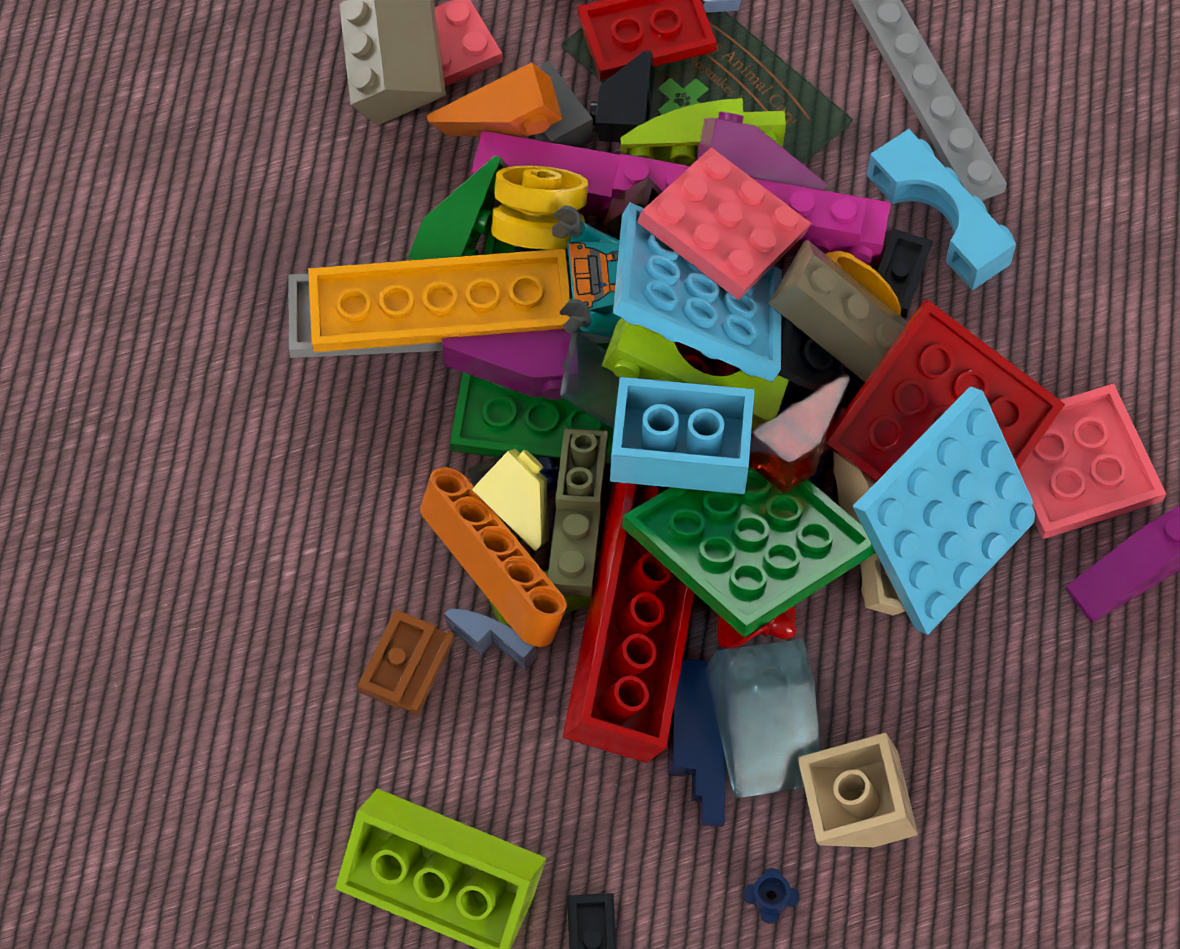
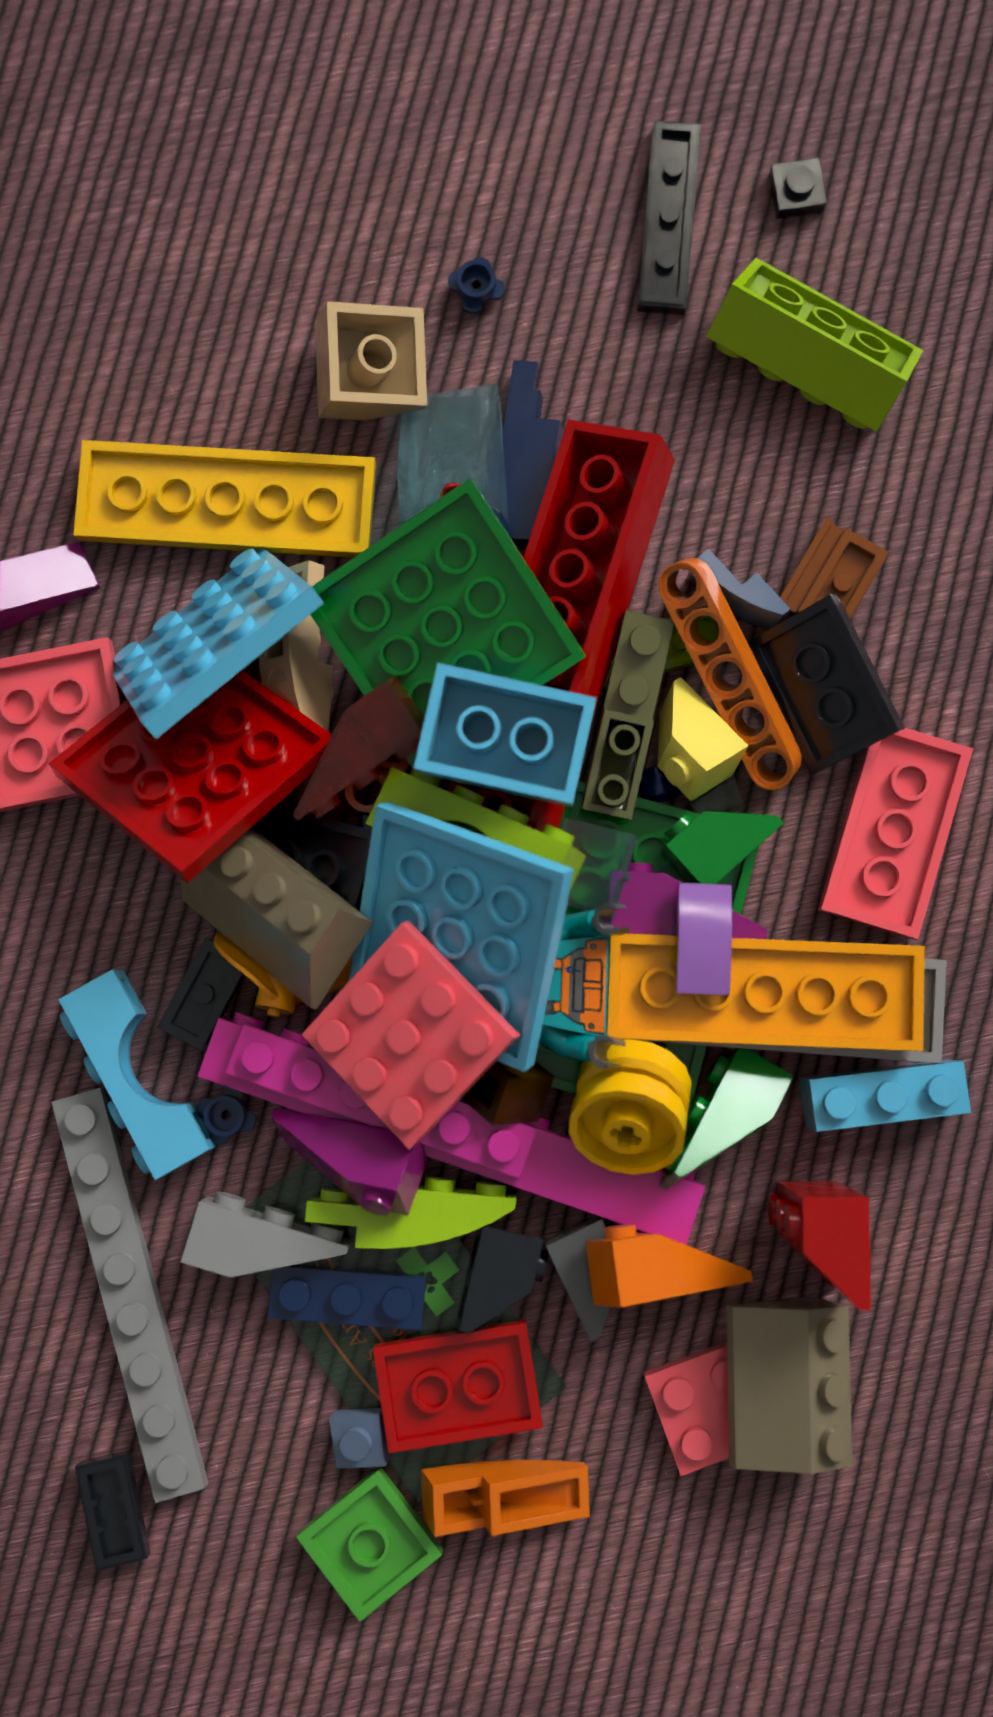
camera: 170 degrees left, 20 degrees up
(333, 463) = (896, 832): none -> coral plate
(340, 245) = (884, 1095): none -> medium azure brick
(379, 141) = (829, 1231): none -> red slope
(406, 561) = (825, 684): none -> black plate
(488, 416) = (716, 842): none -> green slope
(496, 324) = (703, 938): none -> medium lavender slope
(742, 78) = (347, 1296): none -> dark blue plate
(825, 102) = (245, 1241): none -> light grey slope
(865, 182) = (222, 1129): none -> dark blue plate
(967, 666) = (224, 498): none -> yellow plate

